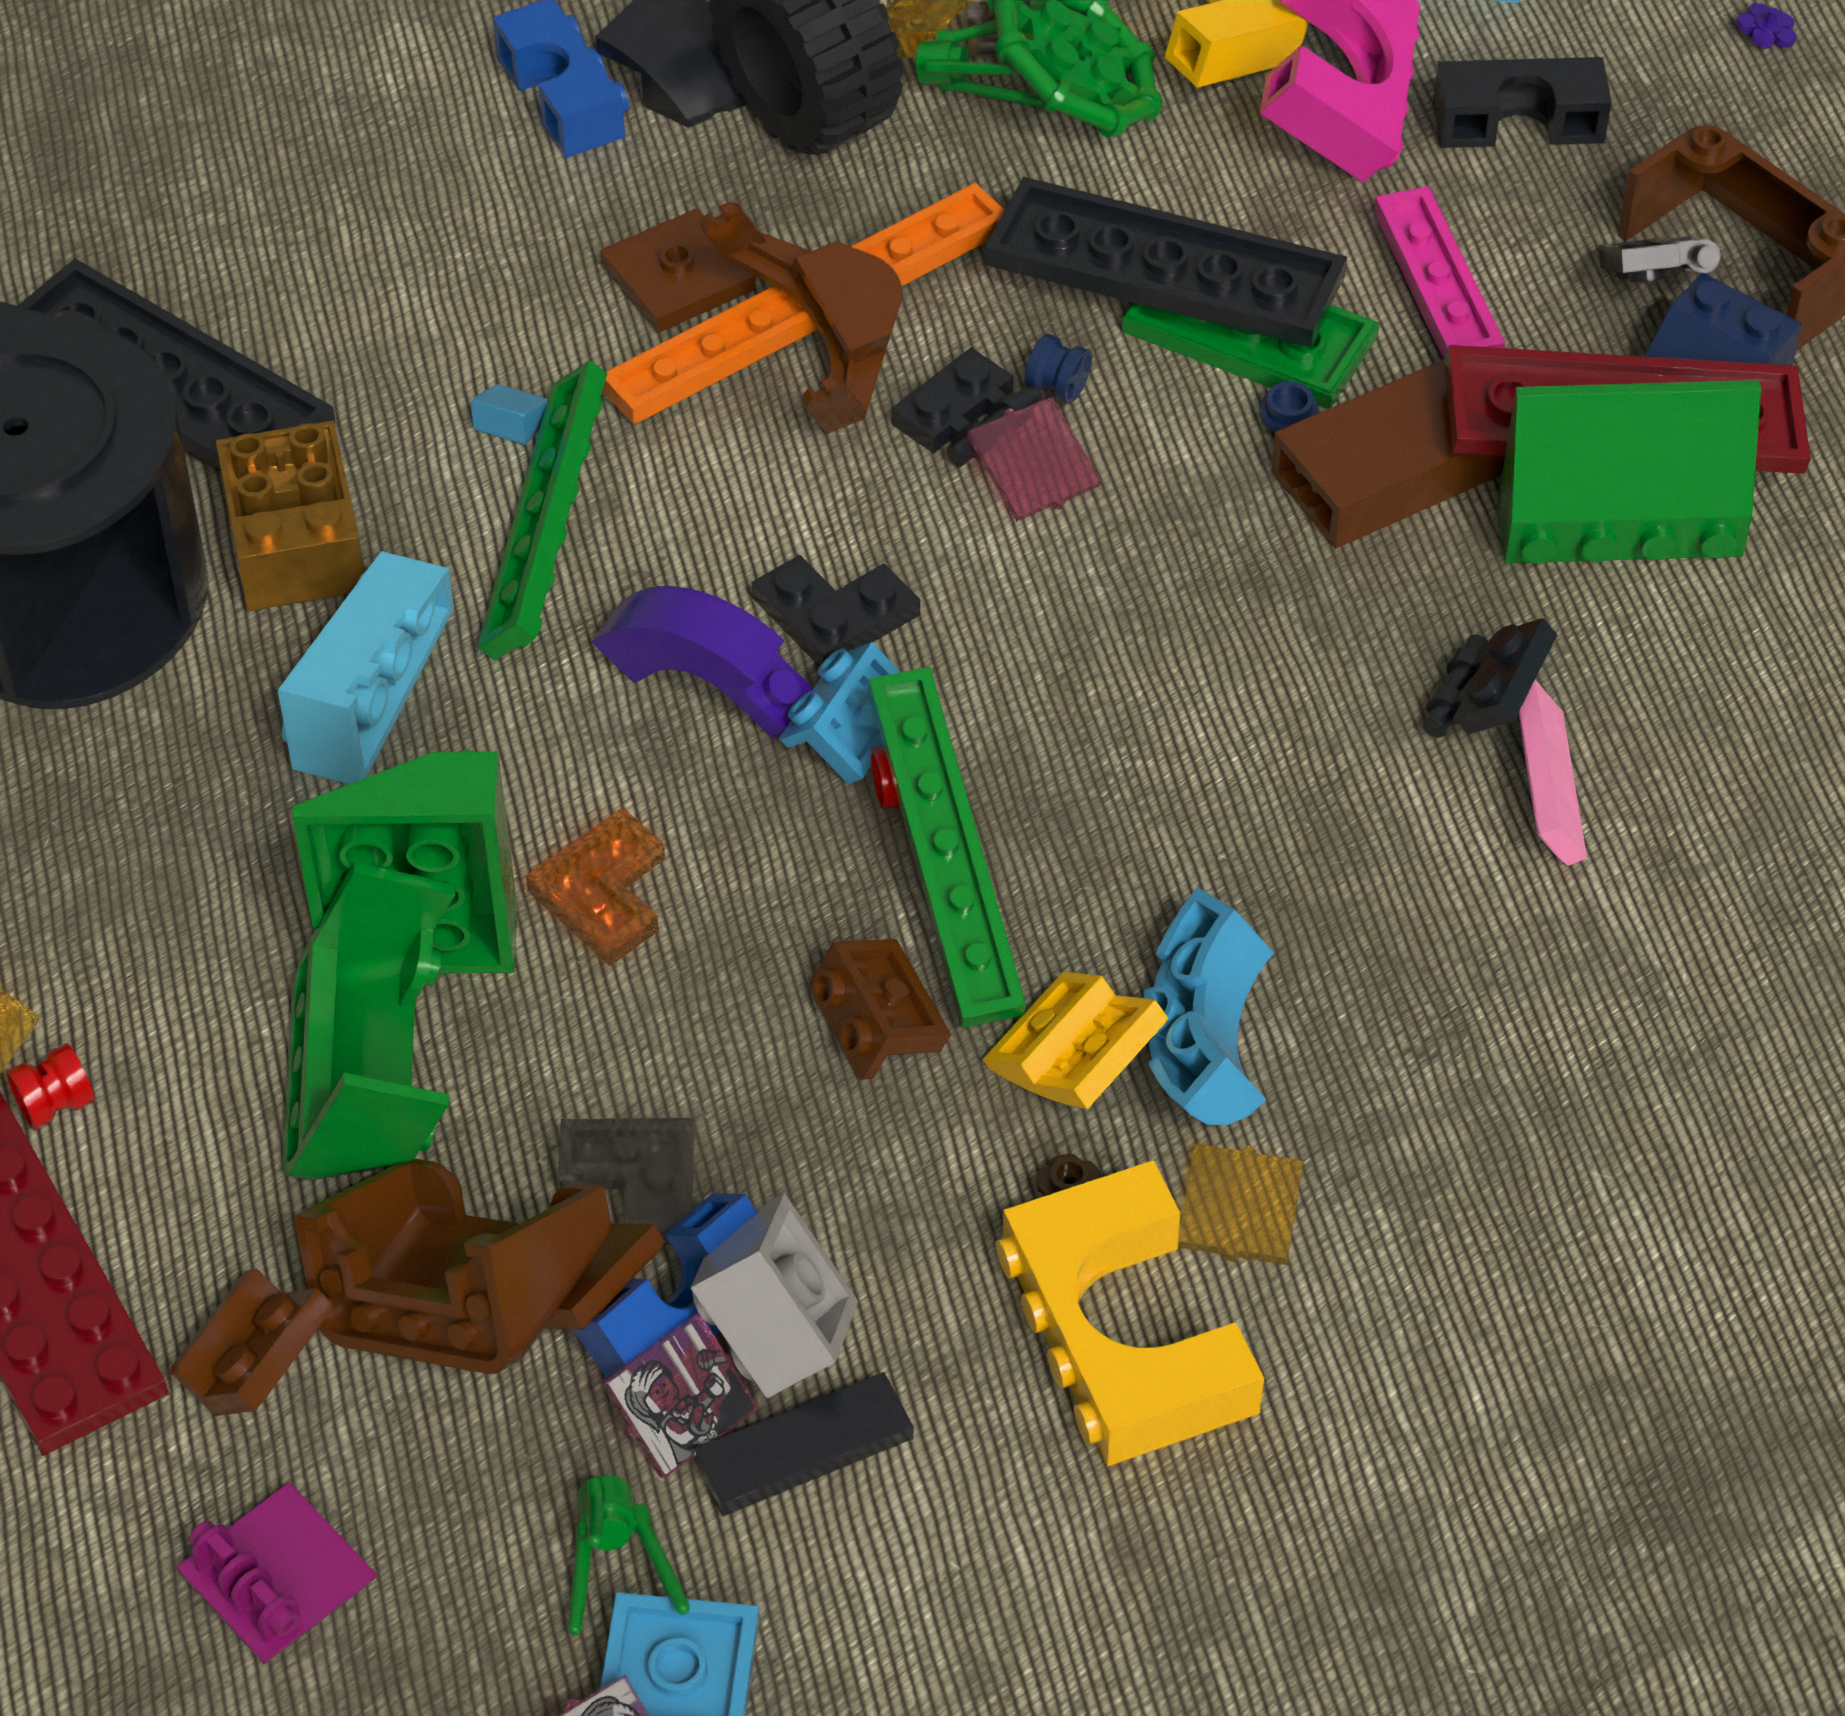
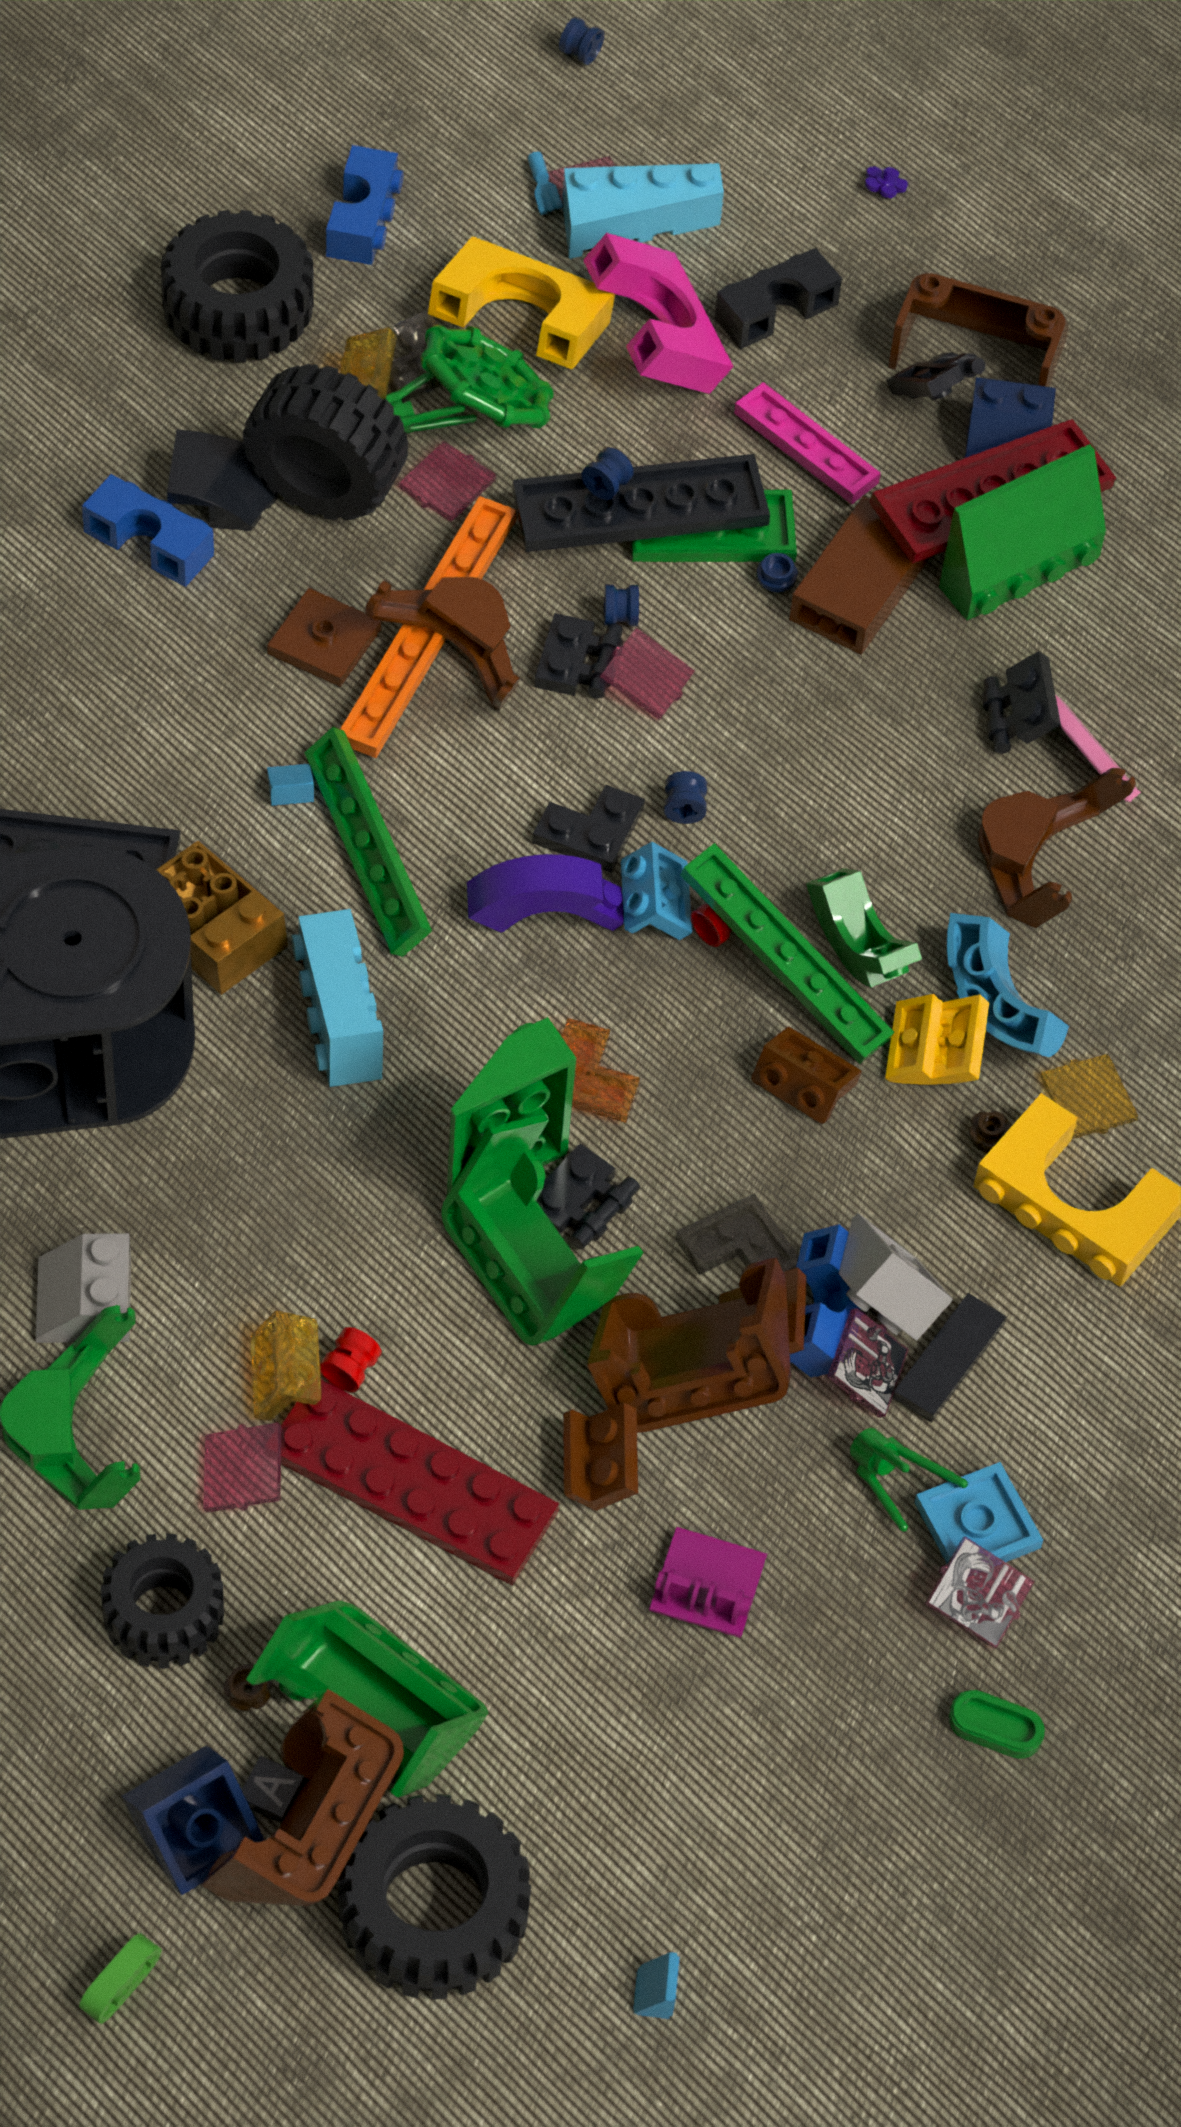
camera: 35 degrees left, 5 degrees up
(480, 1014) = (575, 1186): none -> black plate
(960, 155) = (447, 481): none -> clear pink piece
(970, 616) = (685, 797): none -> dark blue wheel
(1069, 858) = (856, 931): none -> green arch
(1132, 204) = (607, 473): none -> dark blue wheel
(1389, 828) = (1018, 828): none -> reddish brown piece

